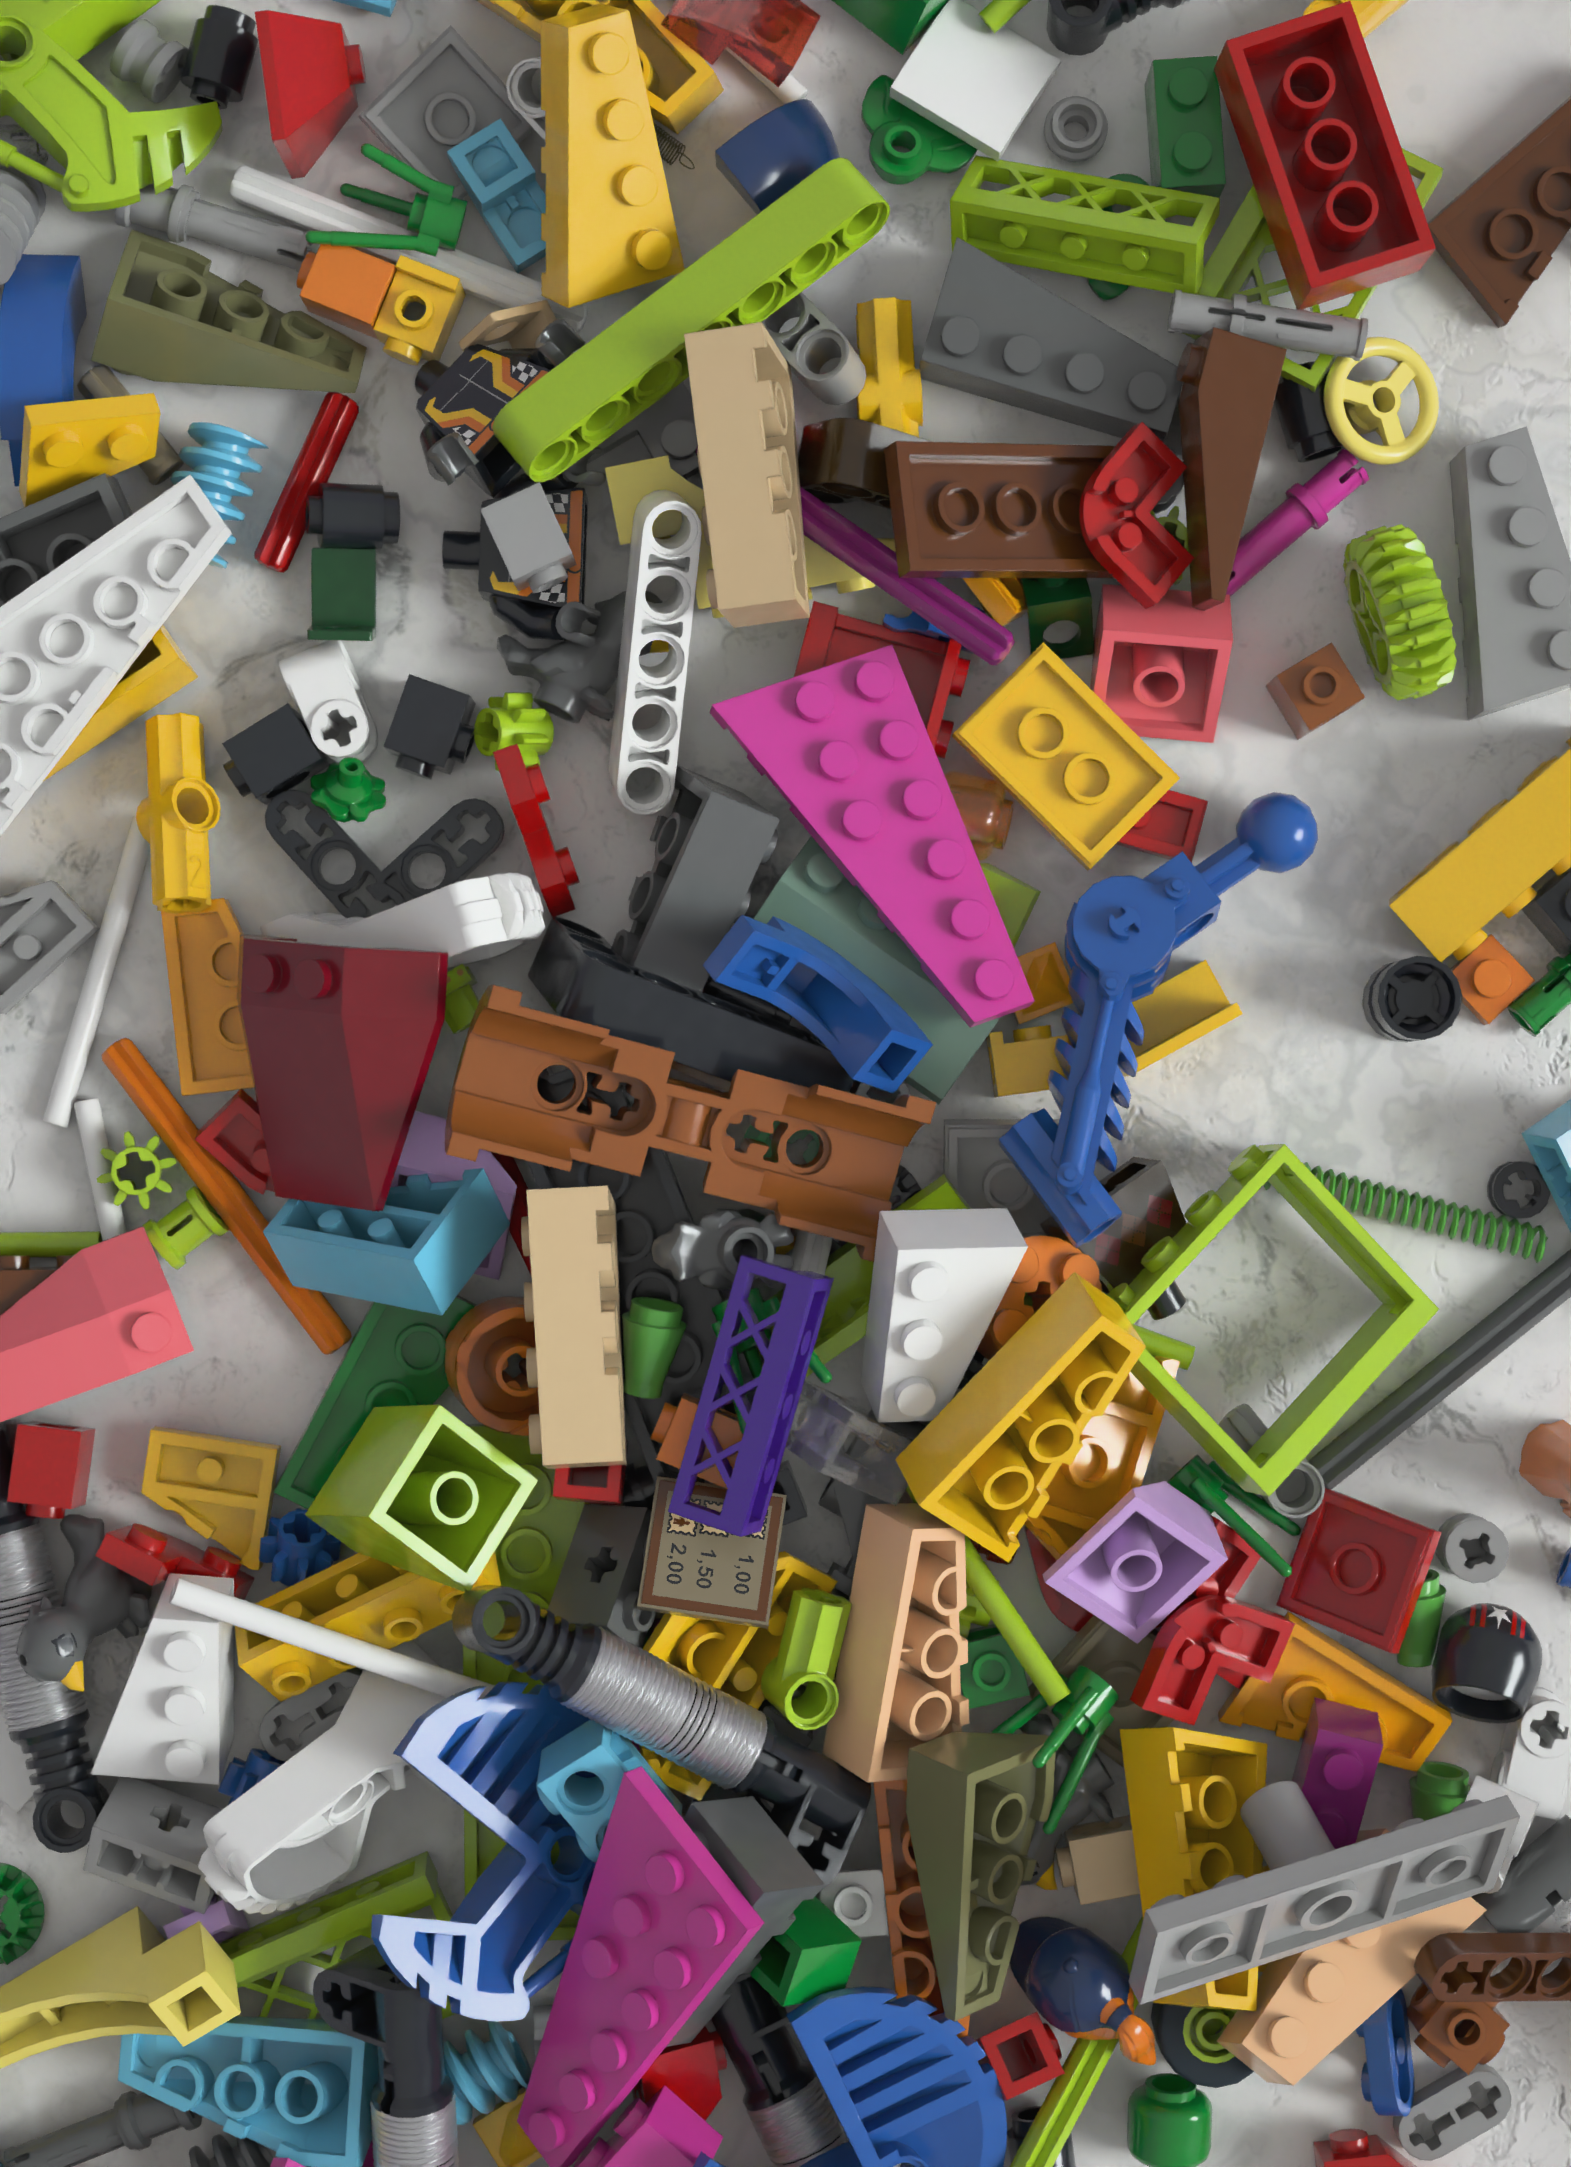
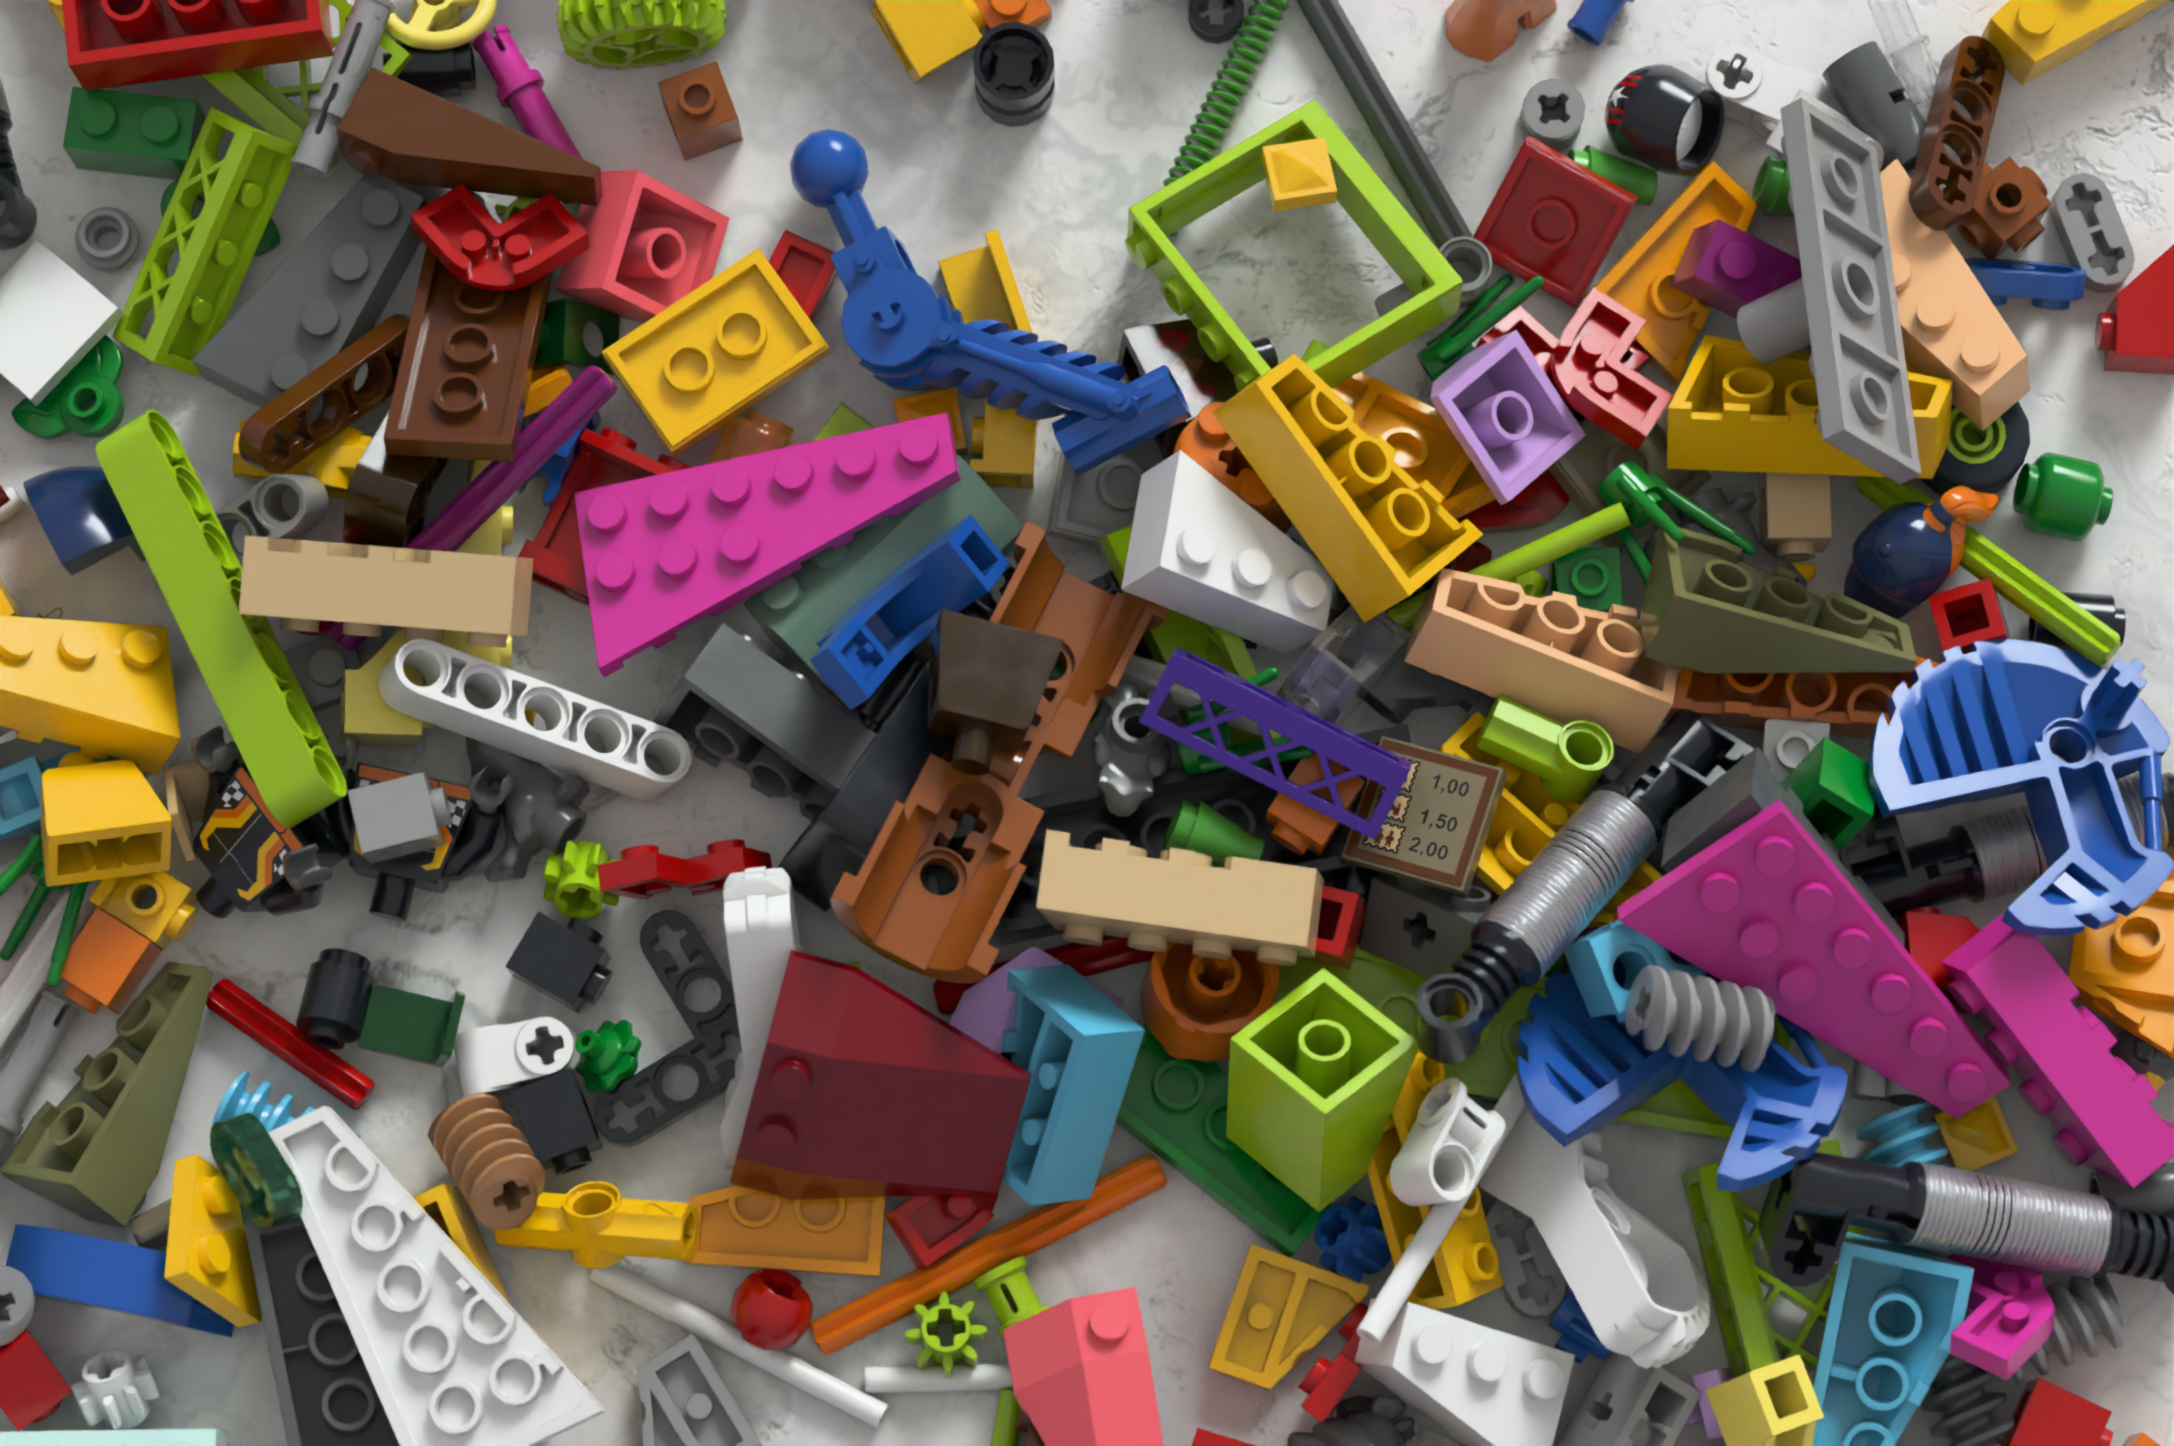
camera: 80 degrees left, 10 degrees down
(129, 998) = (771, 1309): none -> red piece
(153, 473) = (256, 1171): none -> clear green beam
(214, 697) = (488, 1160): none -> medium nougat piece
(375, 1633) = (1445, 1147): none -> white piece
(470, 245) = (101, 822): none -> yellow torso
(543, 1869) = (1700, 1014): none -> light grey piece
(750, 1095) = (985, 685): none -> dark brown torso
(895, 340) = (281, 430): none -> reddish brown beam
(1352, 1309) = (1299, 174): none -> yellow tile

